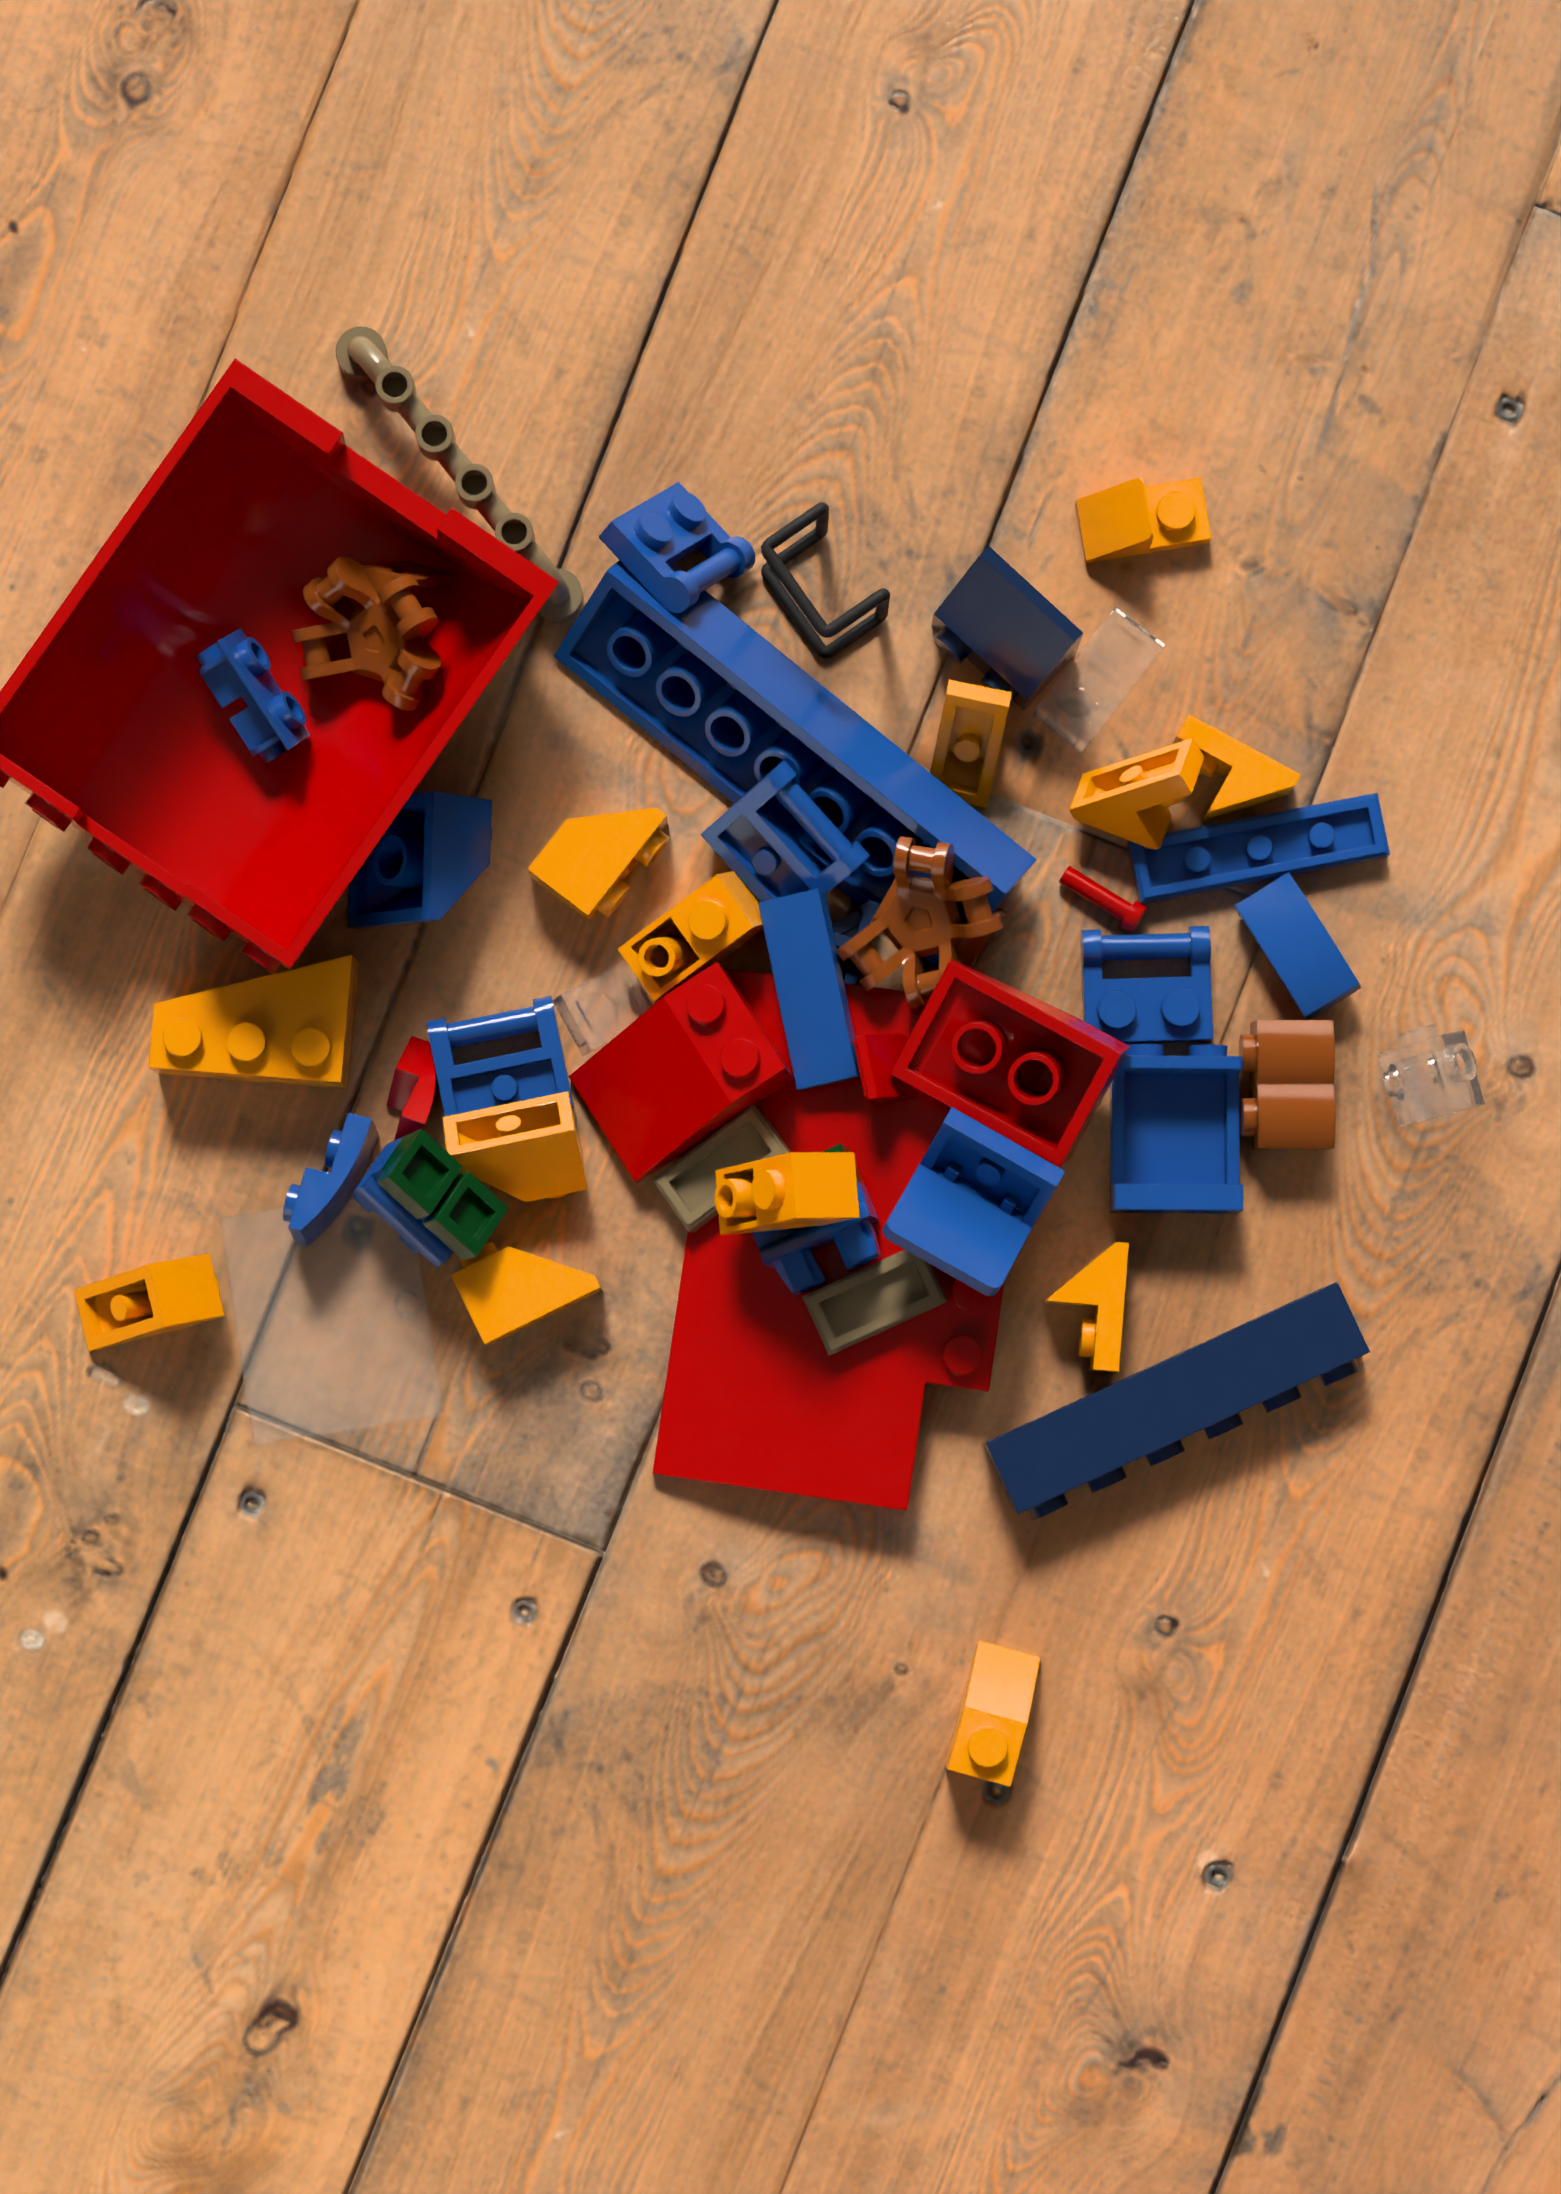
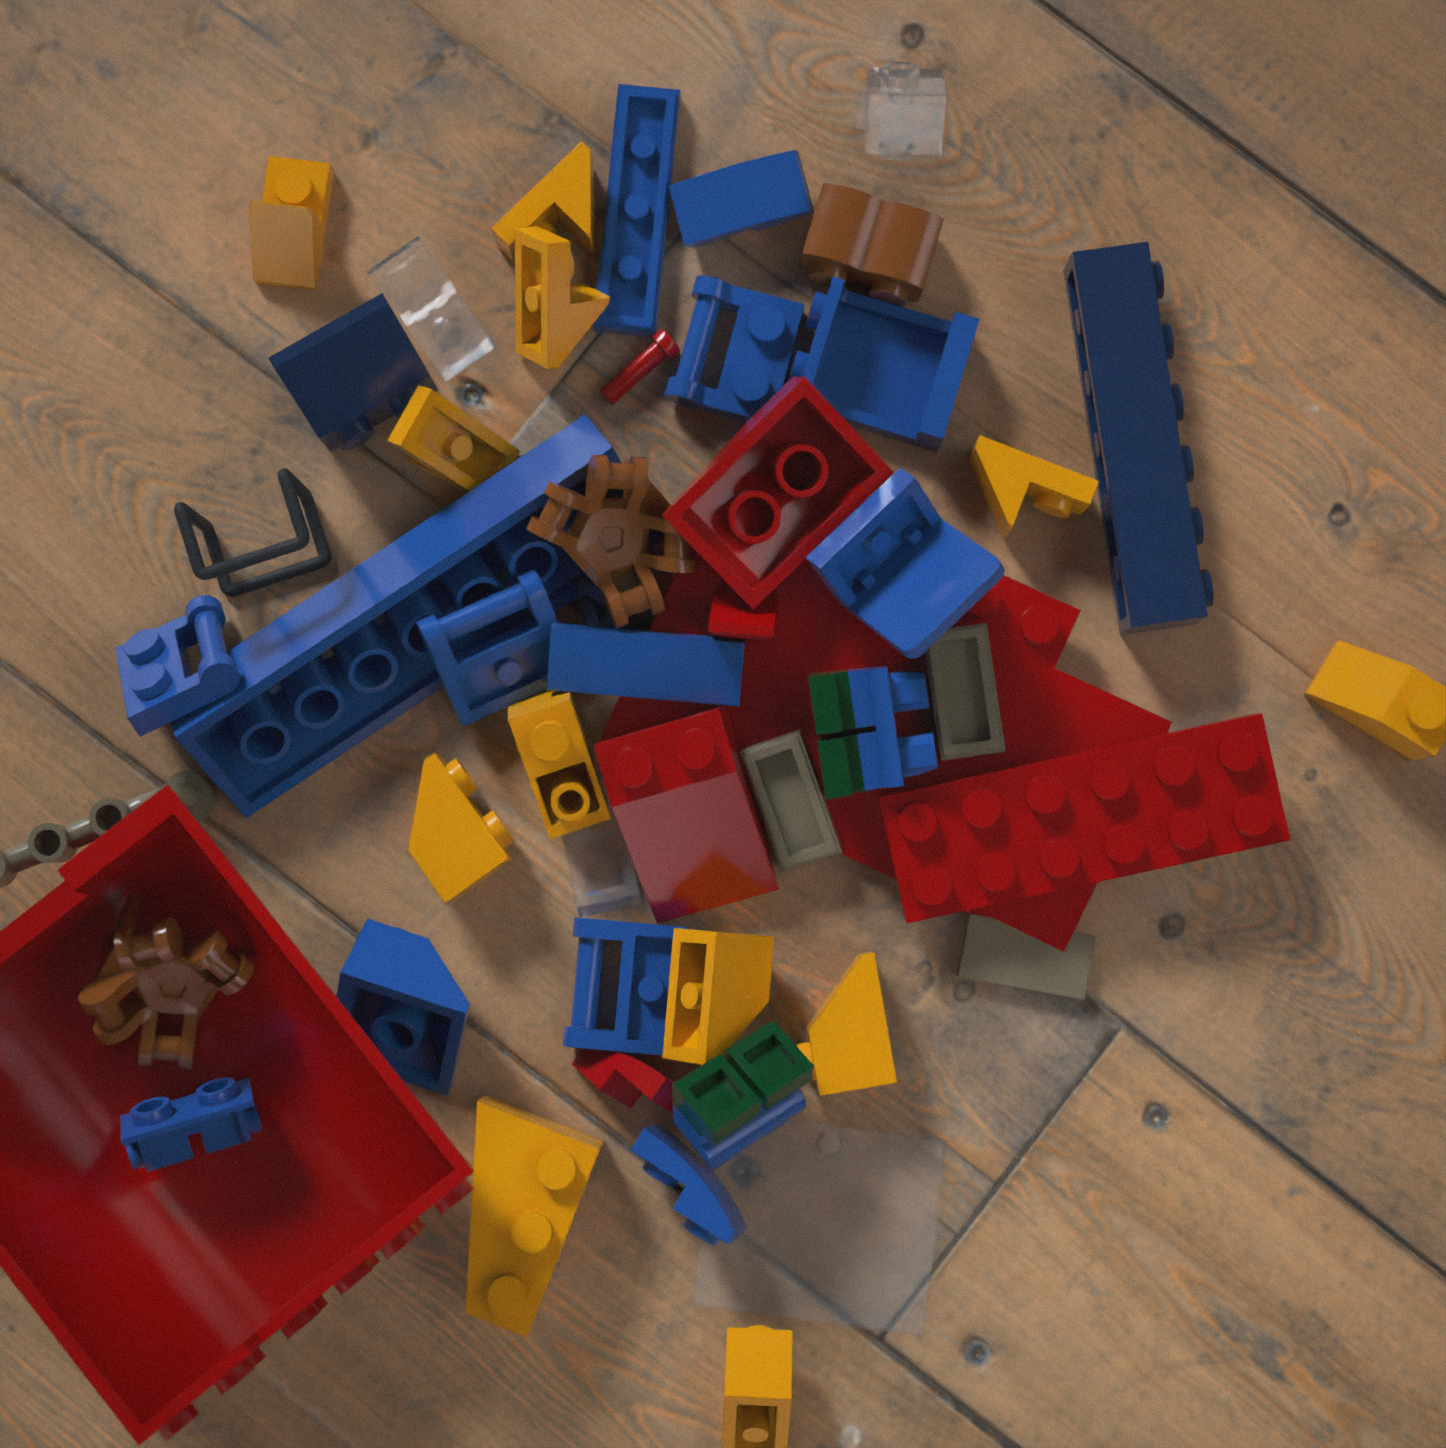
camera: 70 degrees left, 0 degrees up
(636, 1426) = (1014, 959): none -> dark tan tile
(787, 1192) = (844, 741): light orange slope -> none
(788, 1450) = (1084, 817): none -> red plate

